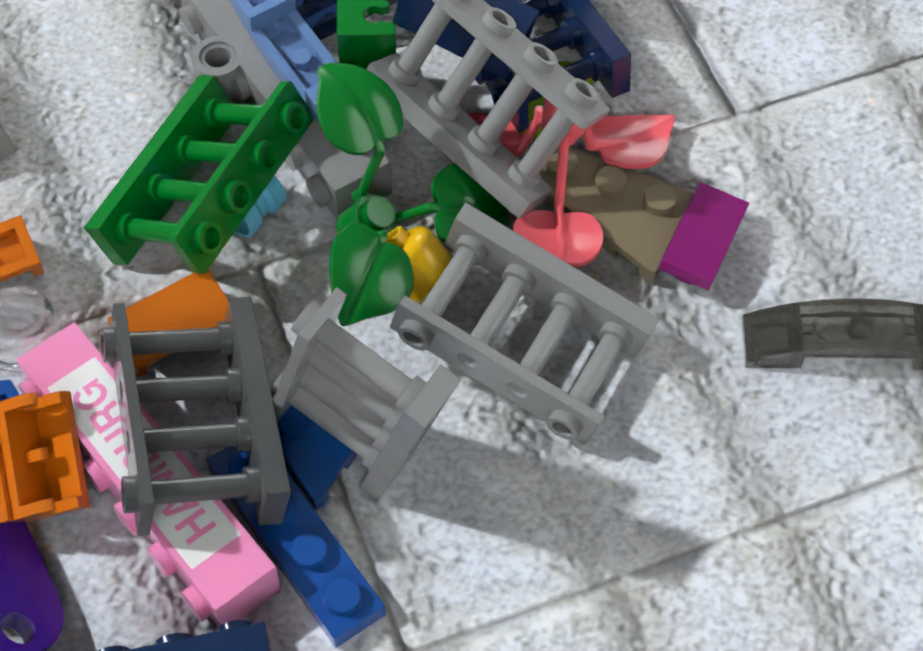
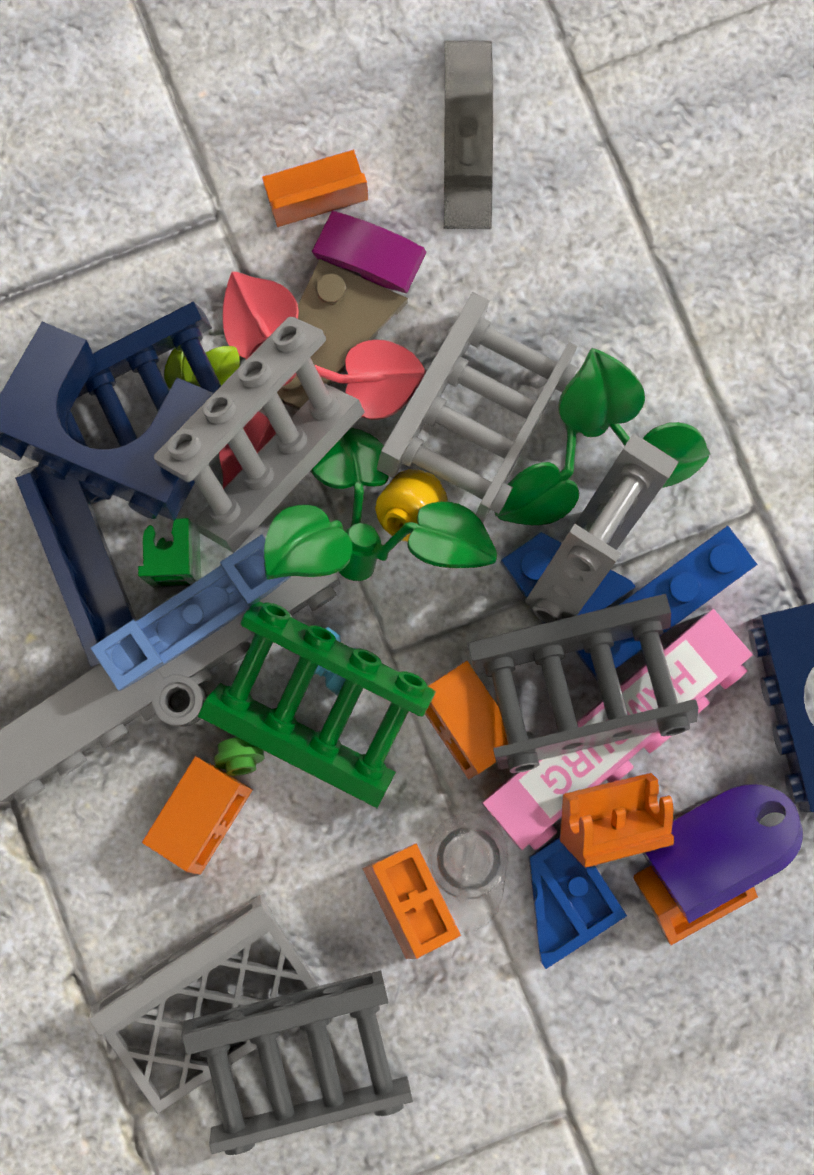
camera: 90 degrees left, 25 degrees up
(100, 88) = (197, 816): none -> orange hinge
(154, 115) = (238, 757): none -> bright green plate
(516, 384) = (596, 398): none -> green plant
(773, 191) = (315, 188): none -> orange panel

